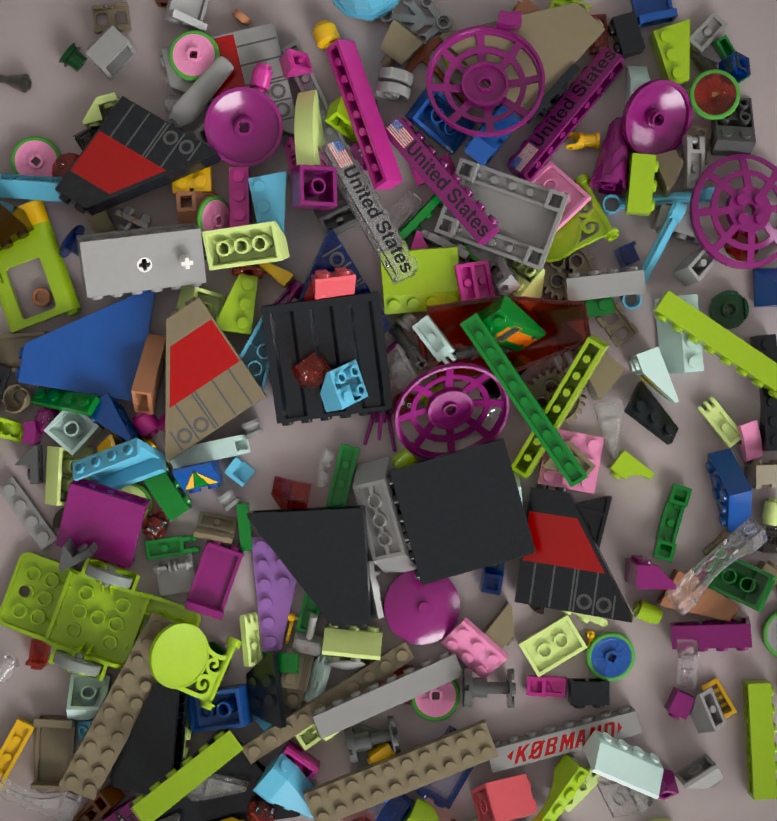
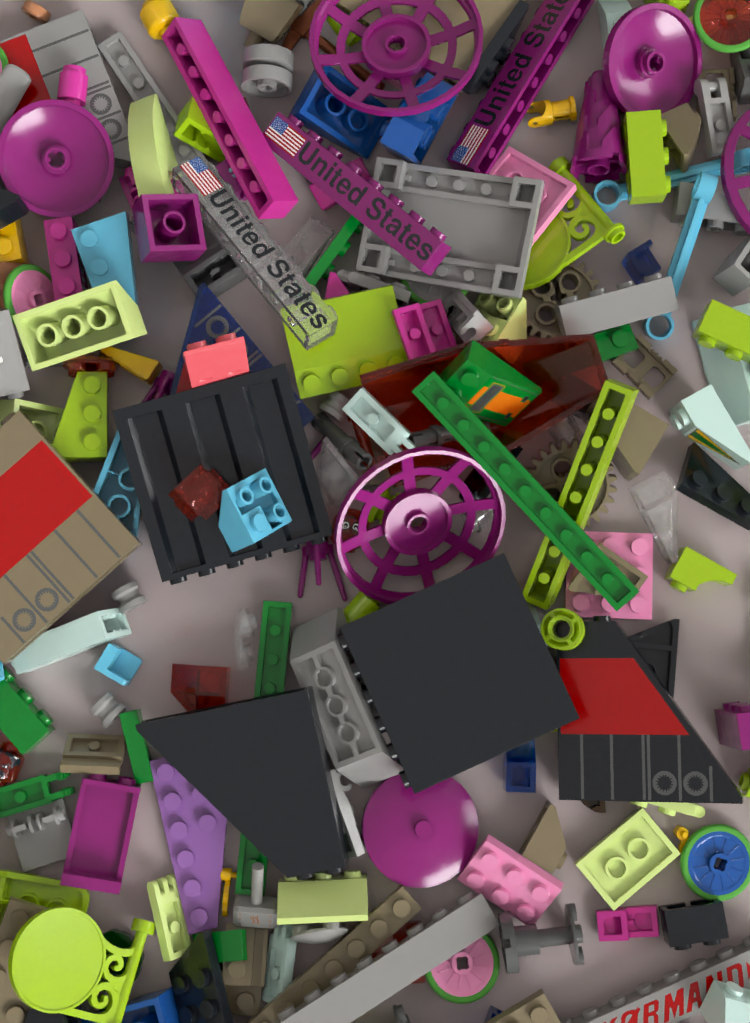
camera: 10 degrees left, 5 degrees down
(199, 476) = (56, 678): blue slope -> none
(295, 63) = (119, 60): dark pink slope -> none
(525, 492) = (549, 625): none -> lime wheel

